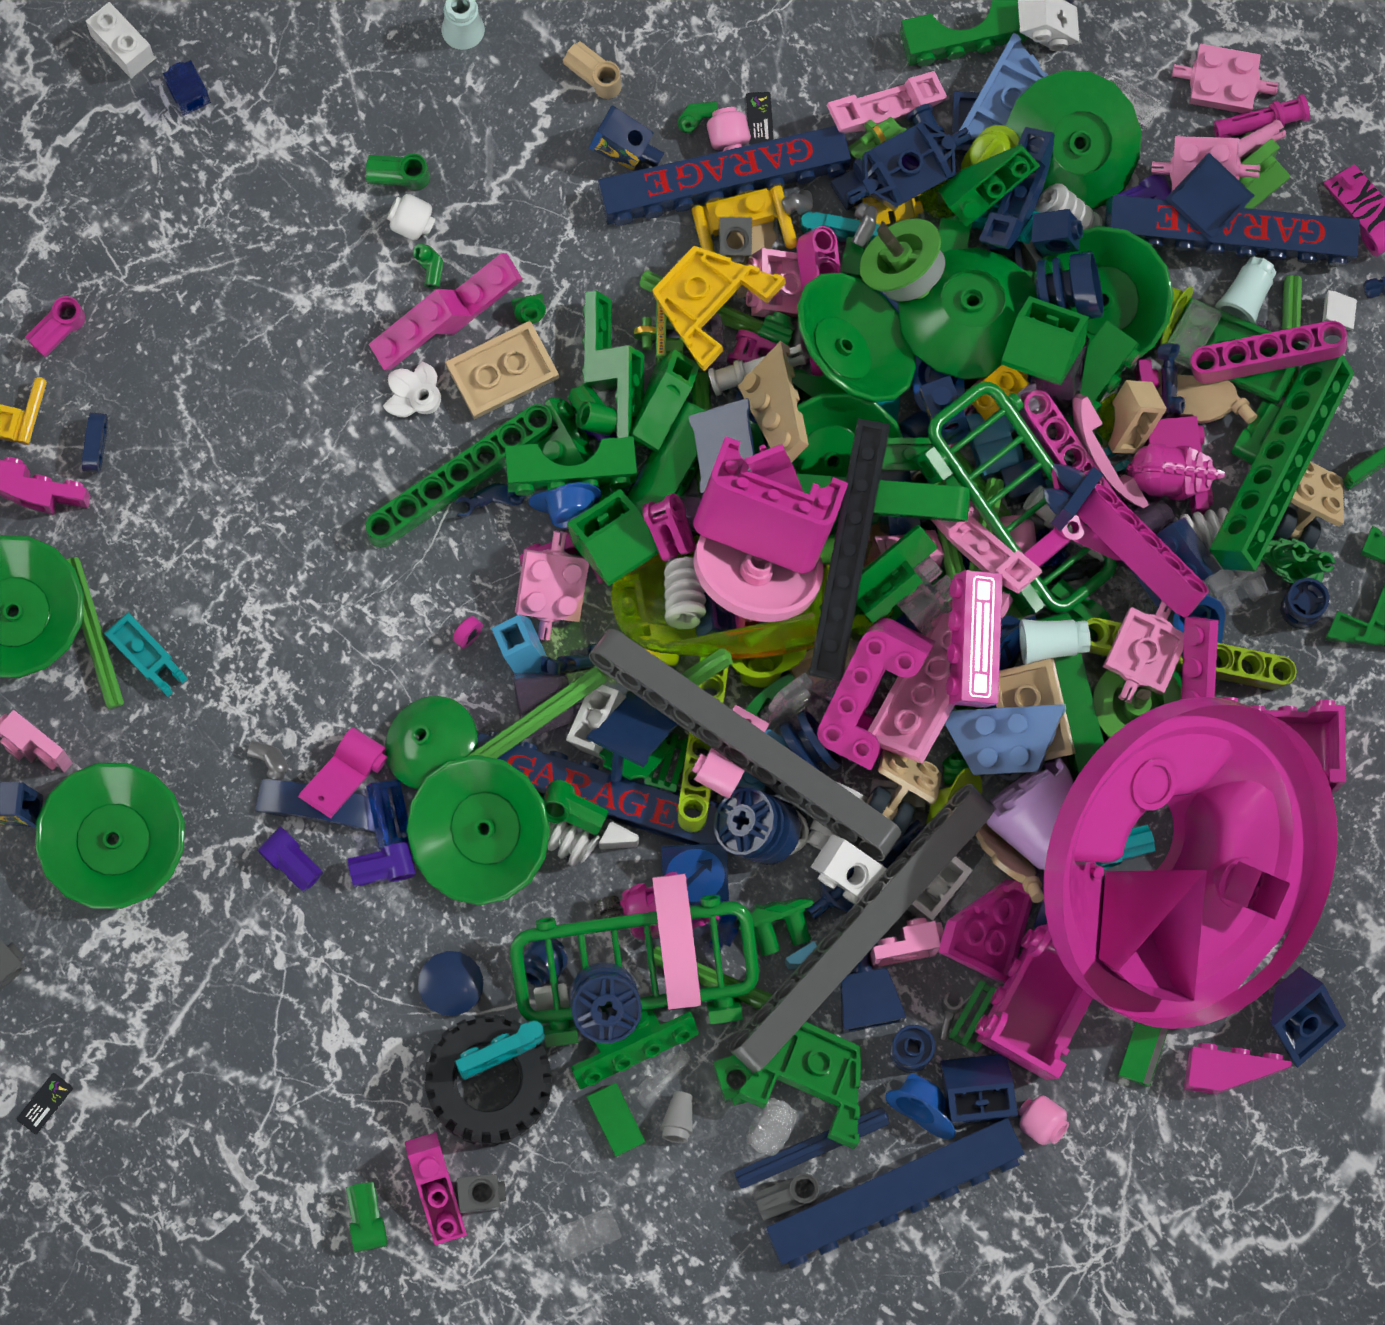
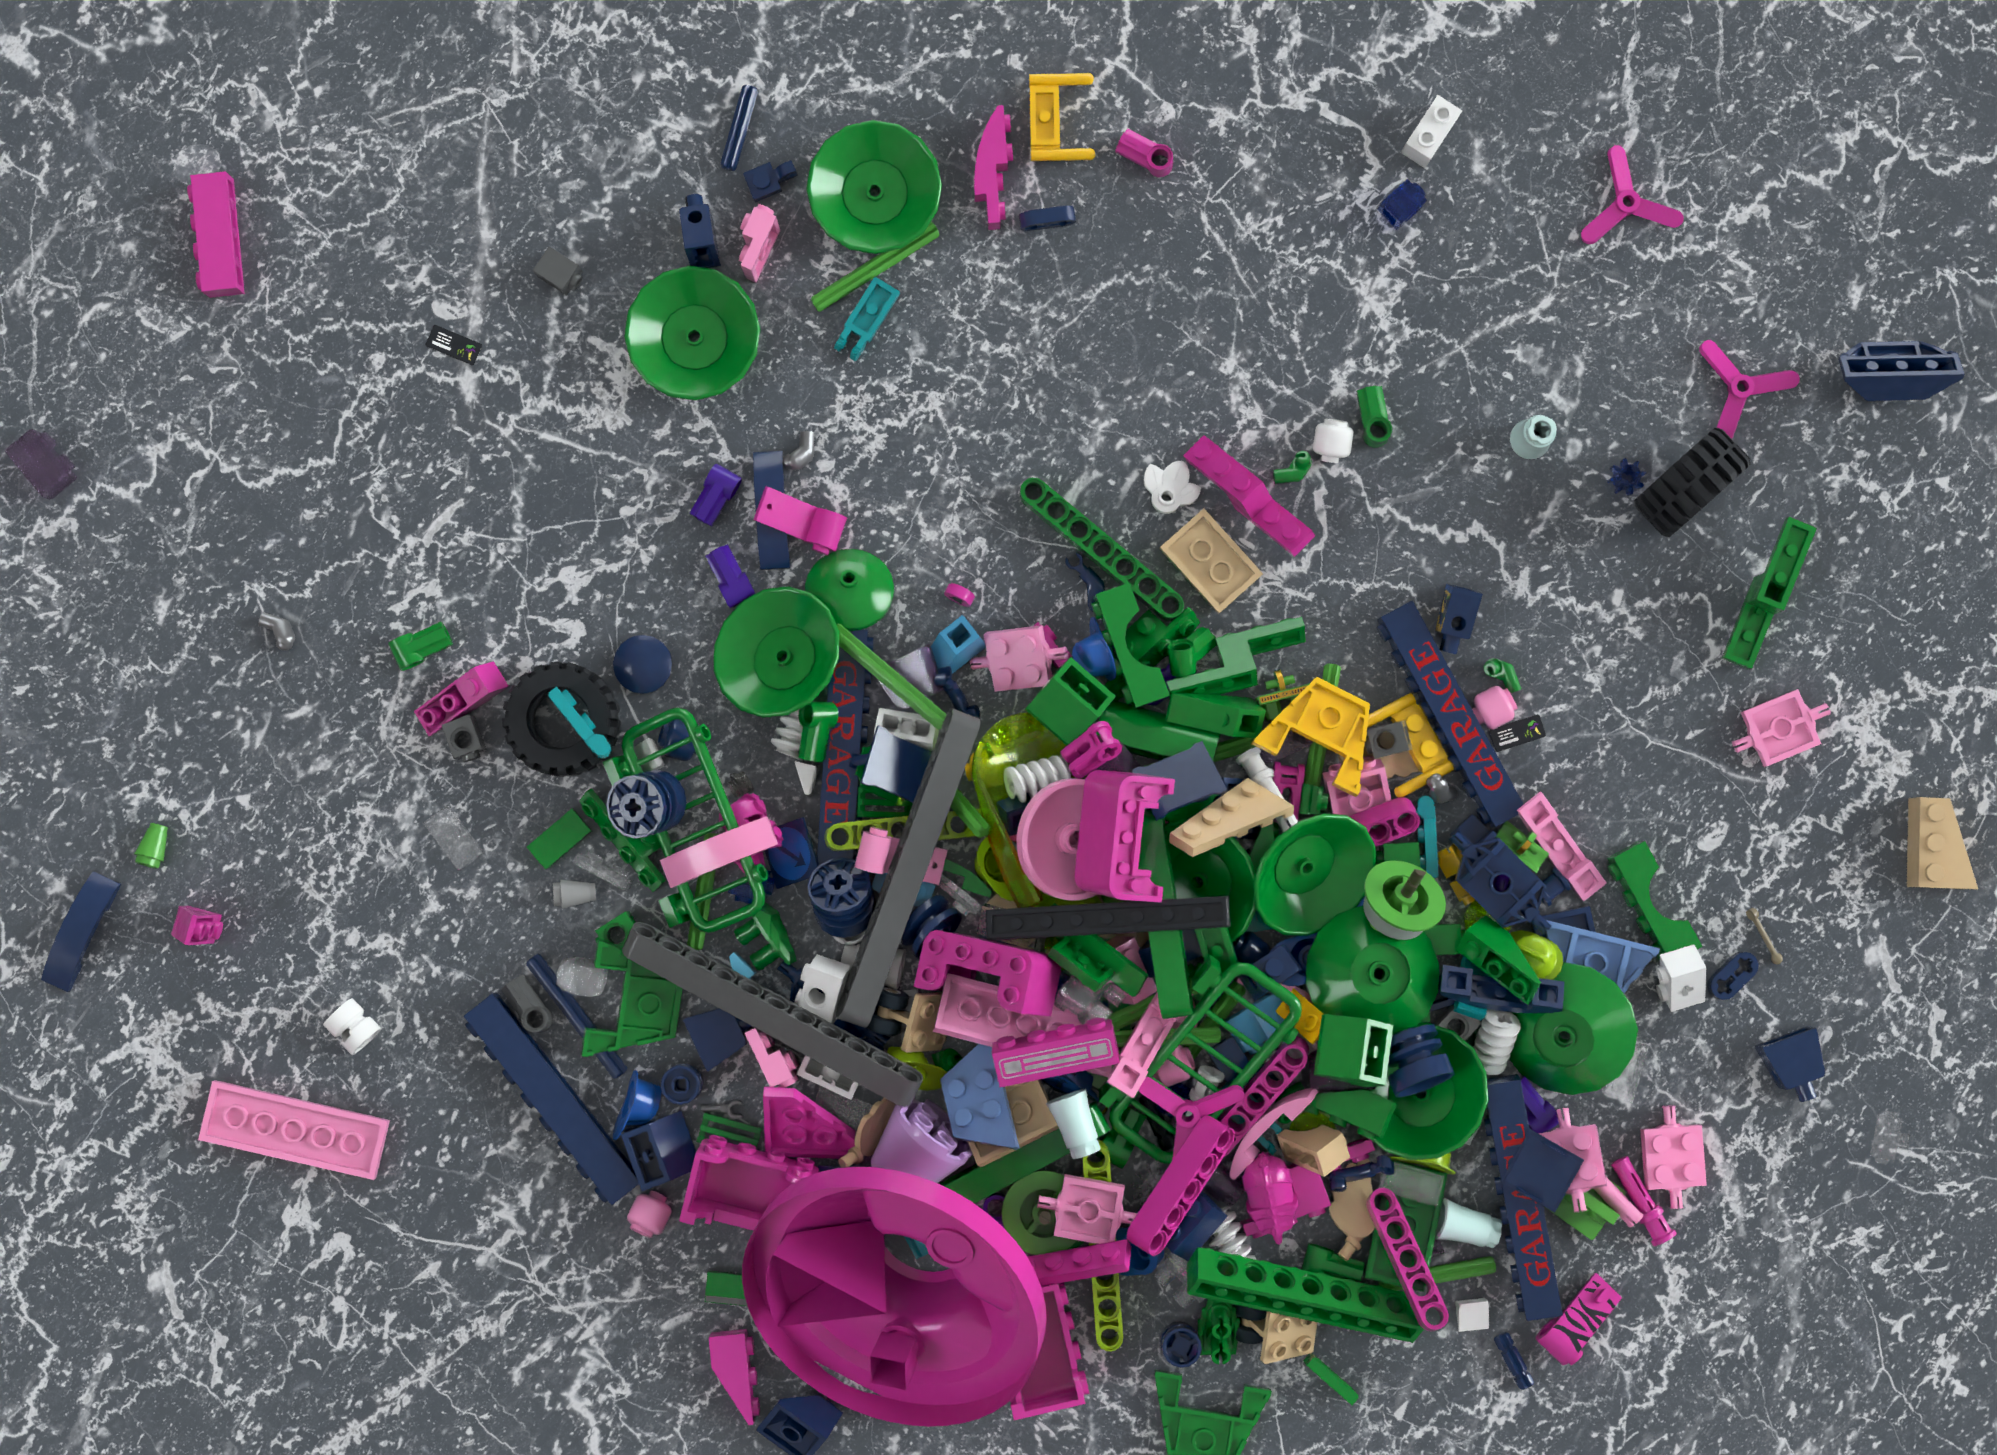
camera: 75 degrees right, 10 degrees up
(383, 812) = (773, 560): clear blue tile -> none
(529, 308) = (1276, 570): green plate -> none
(592, 69) = (1521, 567): tan piece -> none
(775, 466) = (1155, 835): dark pink door -> none
(868, 215) = (1432, 858): flat silver arm -> none
(1056, 232) = (1468, 1035): dark blue brick -> none
(1075, 482) = (1227, 1112): dark blue tile -> none

